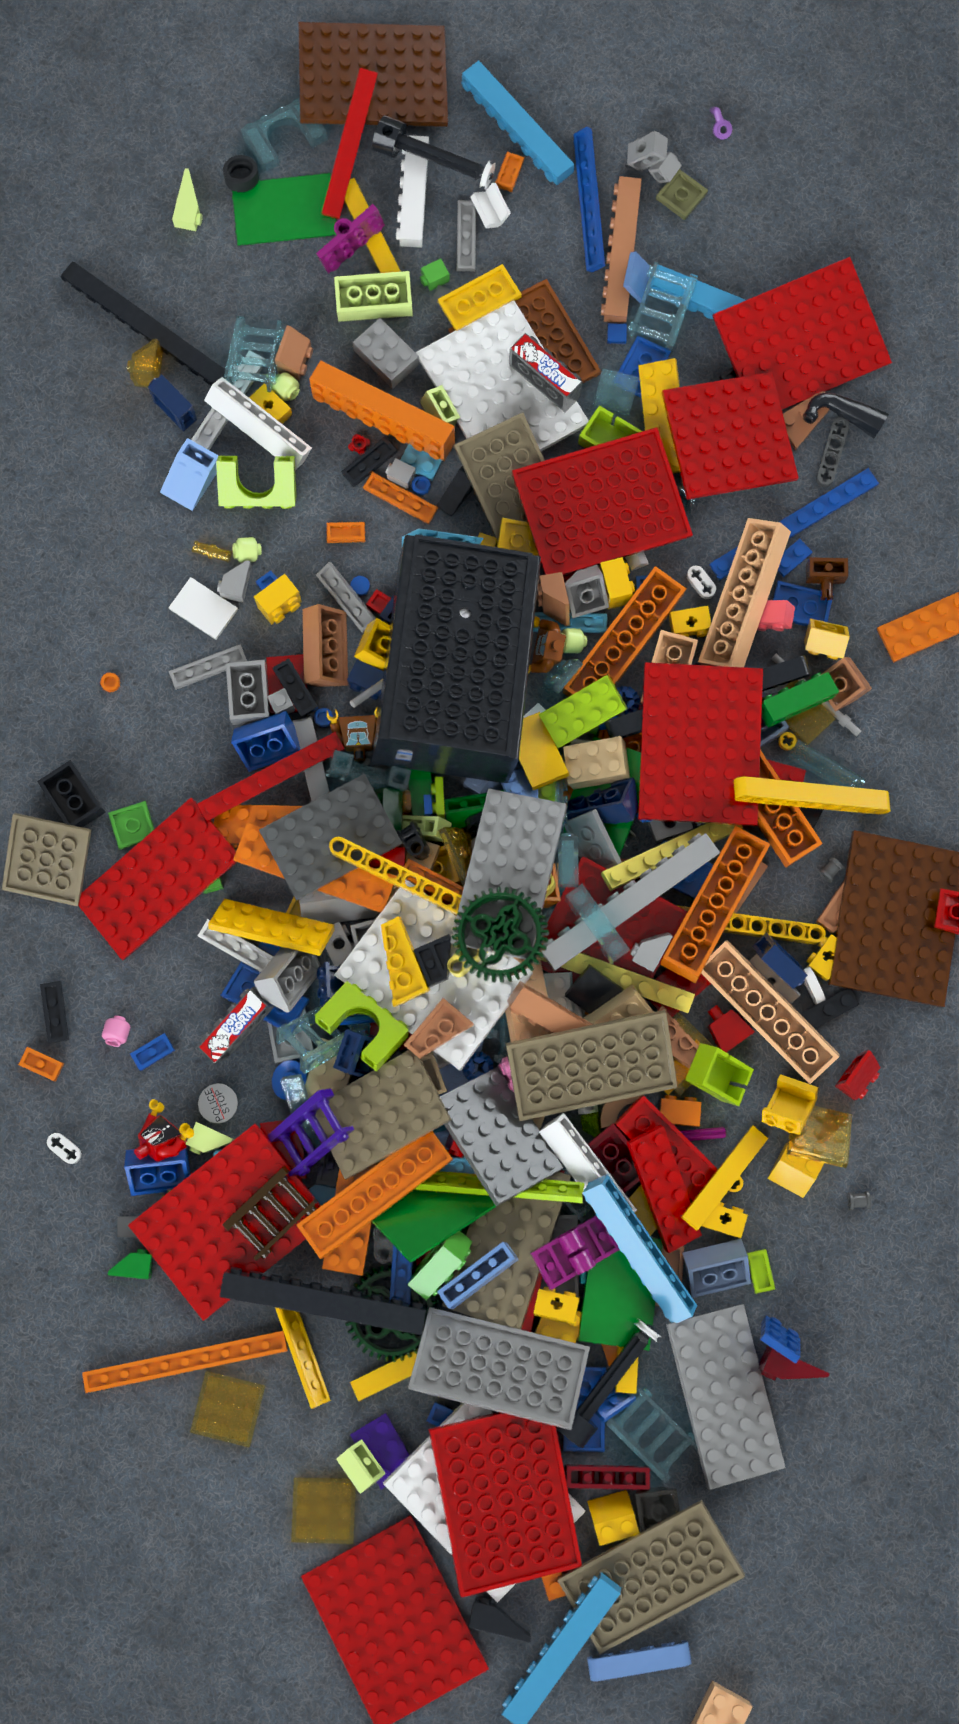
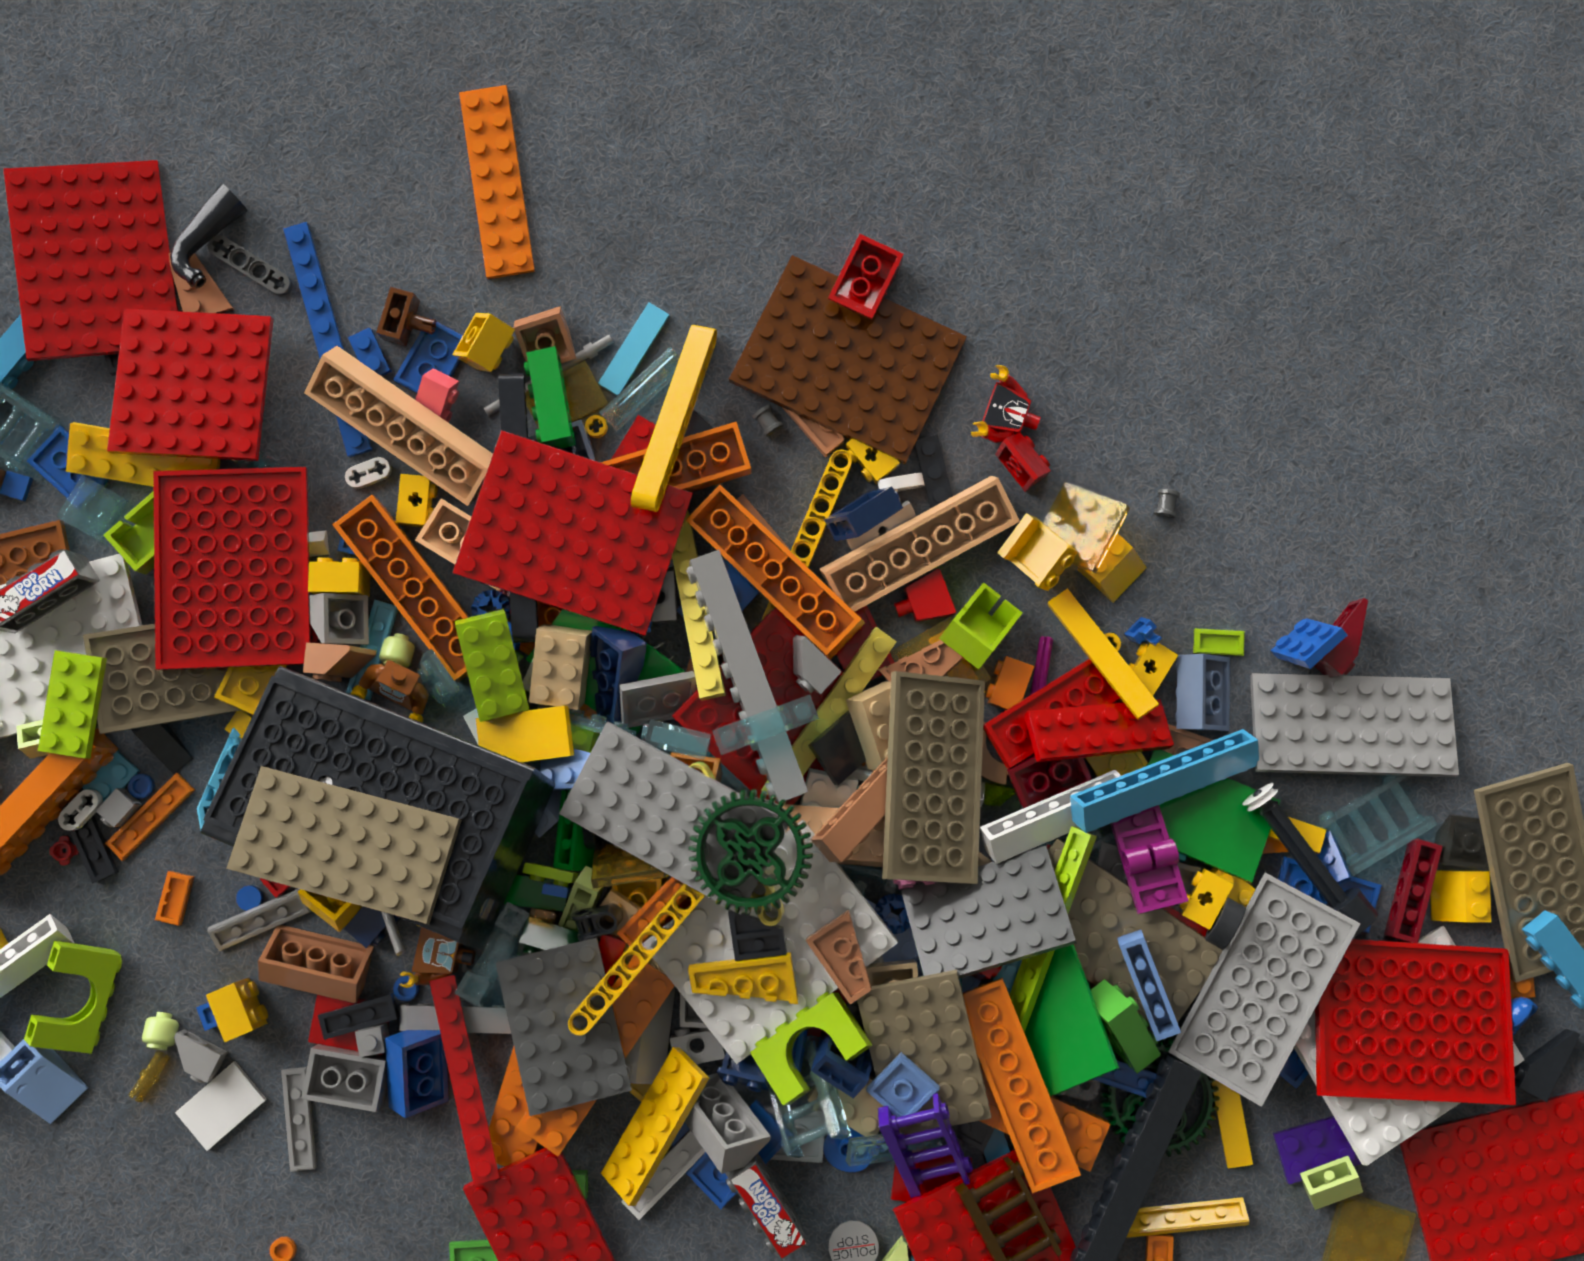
camera: 70 degrees left, 5 degrees up
(351, 1103) = (902, 1087): none -> medium blue tile
(394, 443) = (76, 805): none -> white beam
(425, 638) = (344, 844): none -> dark tan plate
(470, 419) = (72, 704): none -> lime plate
(533, 1590) = (1522, 1010): none -> blue hair
(541, 1324) = (1226, 924): none -> black tyre
(751, 1206) = (1143, 631): none -> blue plate
(856, 753) = (633, 349): none -> medium azure tile
(895, 1052) = (1006, 410): none -> torso

